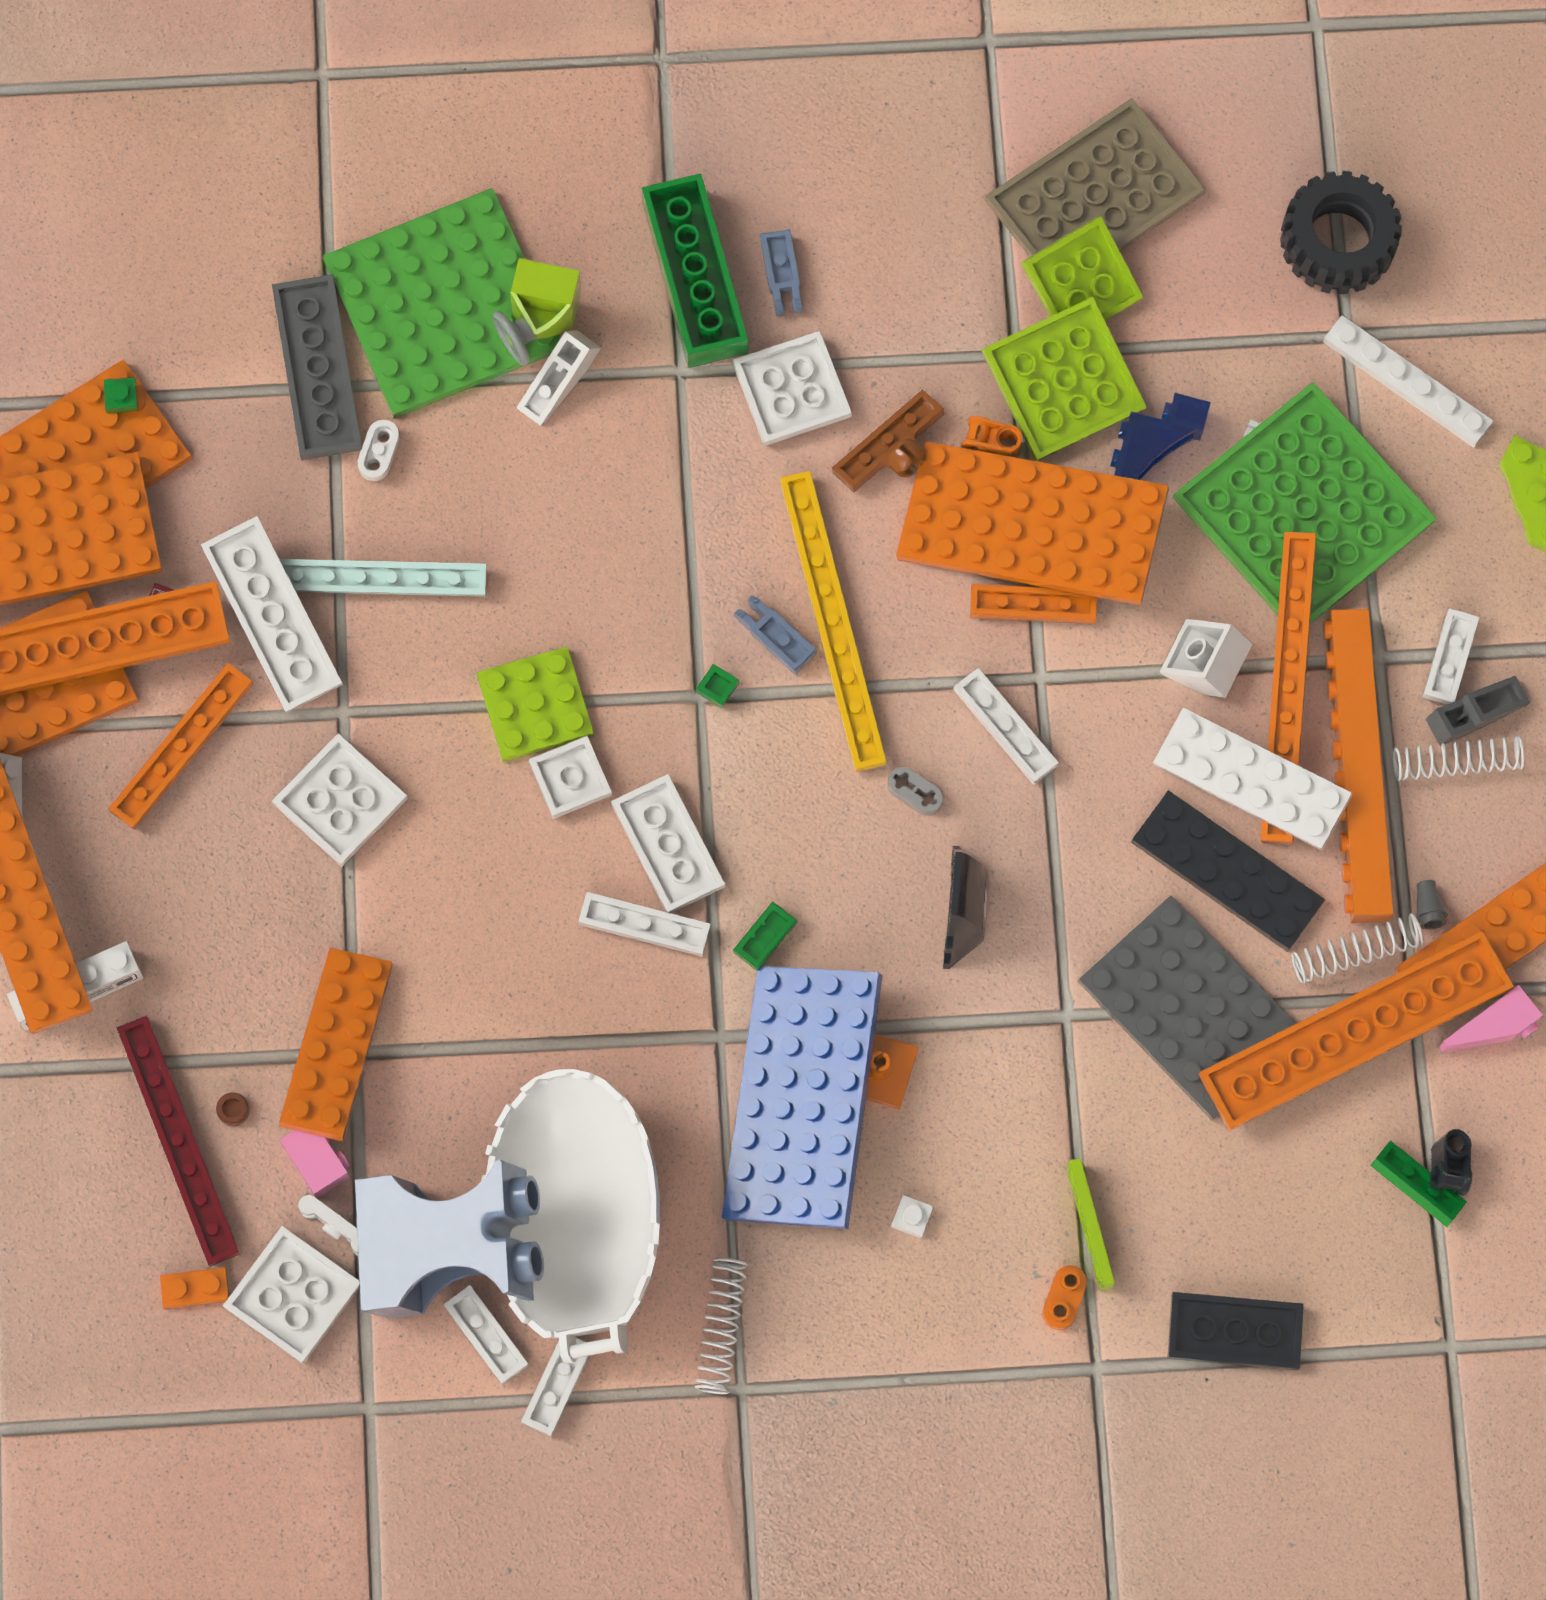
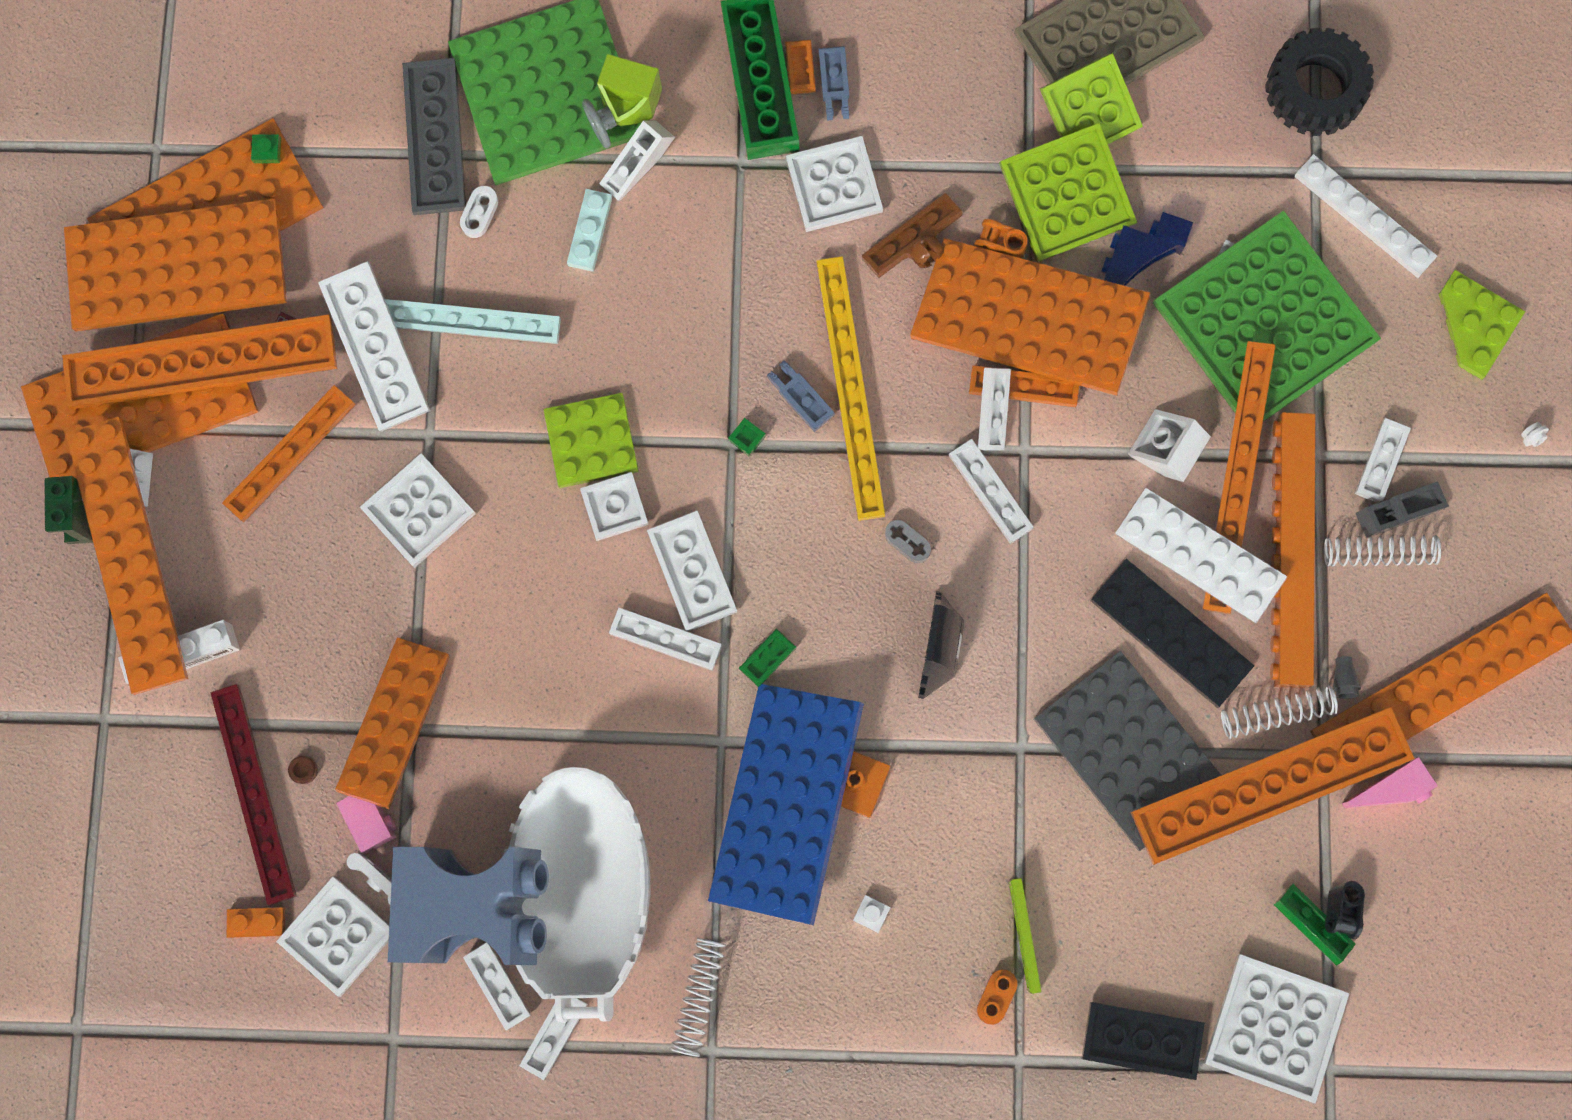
camera: 15 degrees right, 5 degrees up
(510, 462) = (589, 230): none -> light aqua plate
(740, 255) = (800, 66): none -> orange plate
(1001, 631) = (994, 409): none -> white plate
(1385, 1304) = (1276, 1028): none -> white plate

